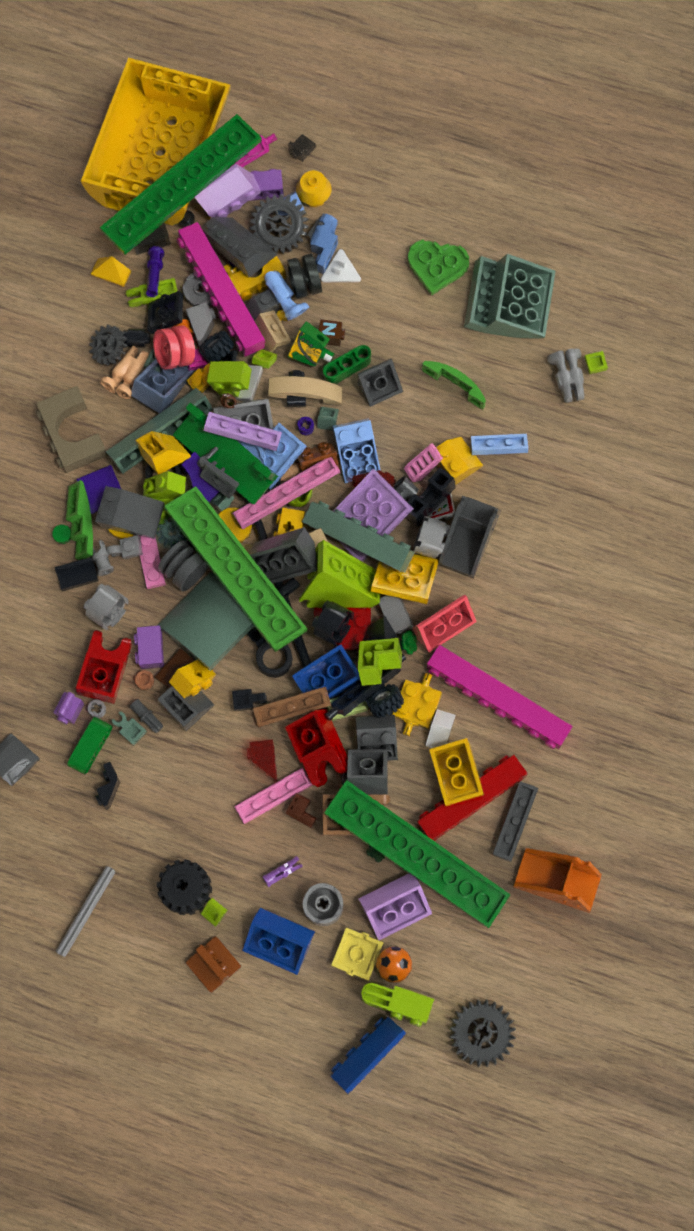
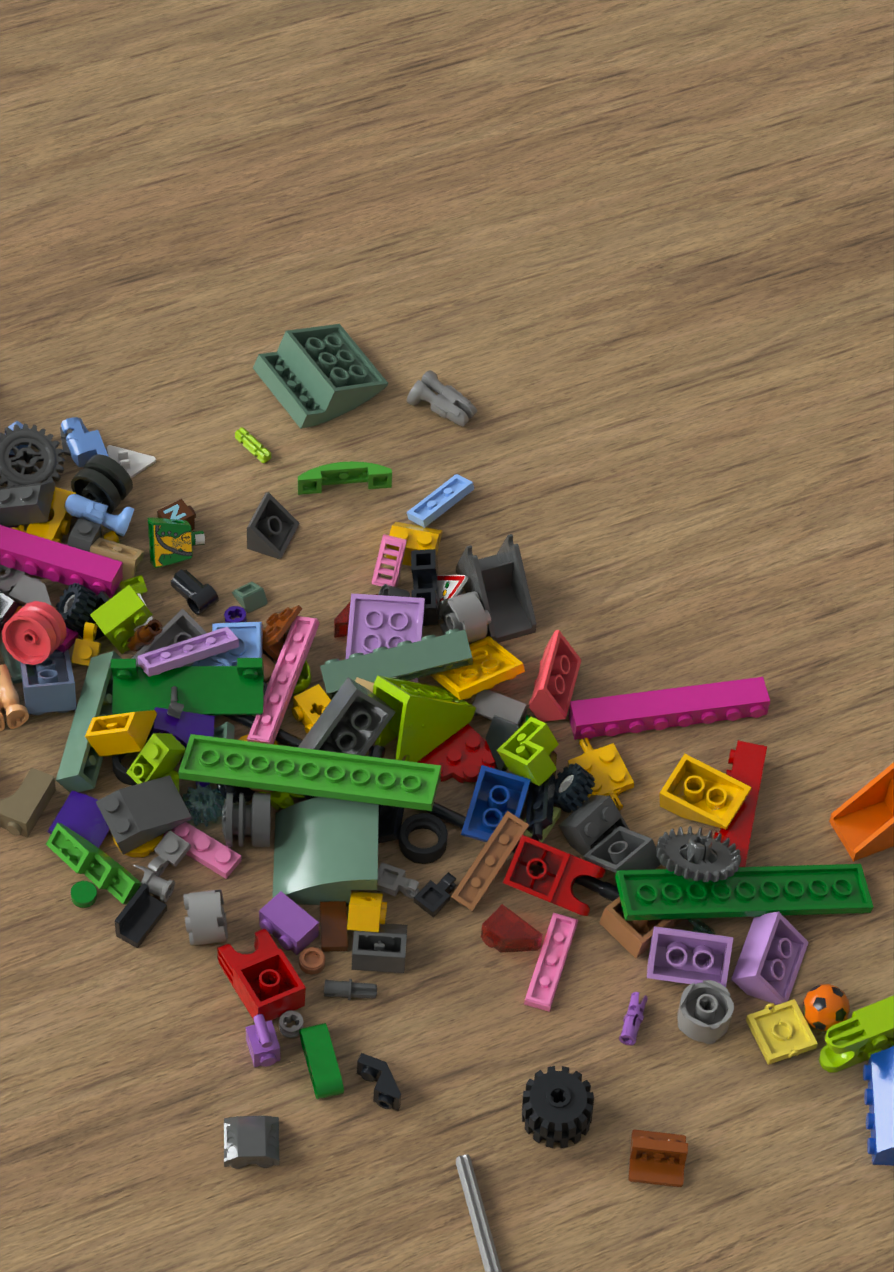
camera: 50 degrees left, 20 degrees down
(130, 730) = (348, 1013): sand green plate -> none
(214, 912) = (608, 1108): lime plate -> none
(219, 479) = (208, 712): dark grey plate -> none
(232, 669) = (393, 880): none -> light grey plate
(278, 941) = (697, 1082): blue slope -> none
(299, 810) = (589, 954): copper piece -> none
(305, 387) = (201, 579): tan slope -> none
(313, 188) = (27, 407): yellow cone -> none
(332, 623) = (453, 753): black brick -> none
(341, 867) = (688, 956): none -> lavender slope
(351, 357) = (222, 535): green beam -> none
(356, 448) = (312, 592): light blue slope -> none
(417, 803) = (704, 856): none -> dark grey gear
(425, 316) = (253, 445): none -> lime axle
(437, 264) = (219, 395): bright green plate -> none
(440, 729) = (647, 779): white slope -> none
(515, 821) = (797, 801): dark grey plate -> none
(596, 362) = (456, 374): lime plate -> none

